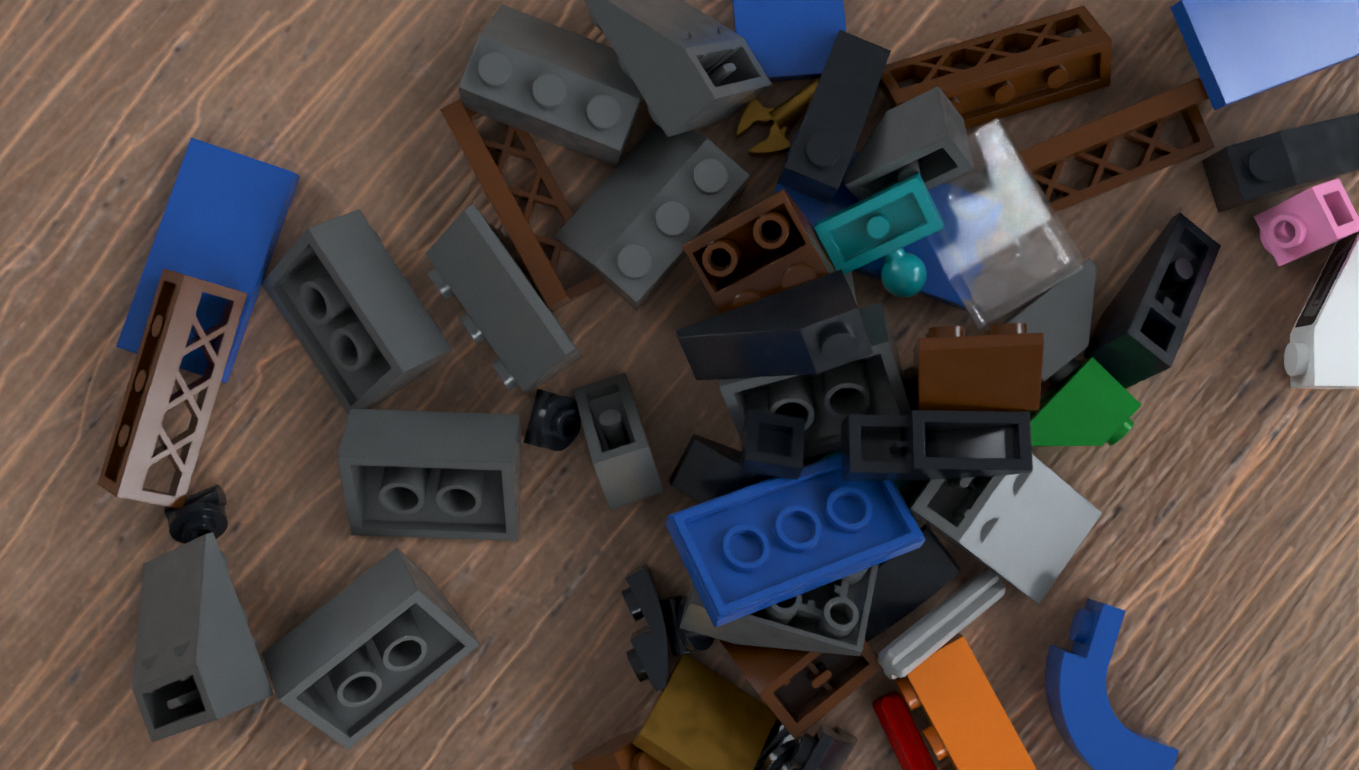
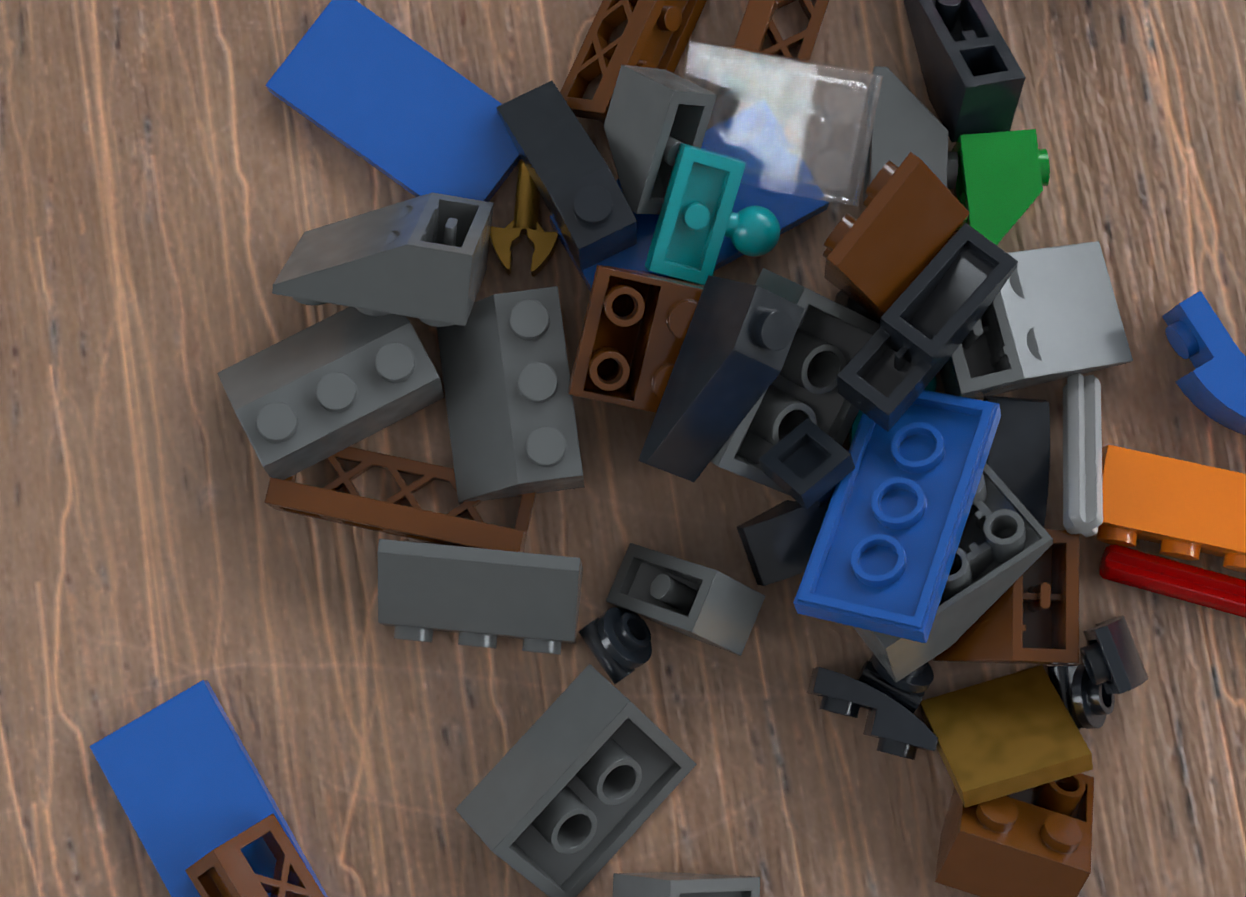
camera: 45 degrees left, 5 degrees down
(355, 312) = (373, 734): dark grey slope -> none

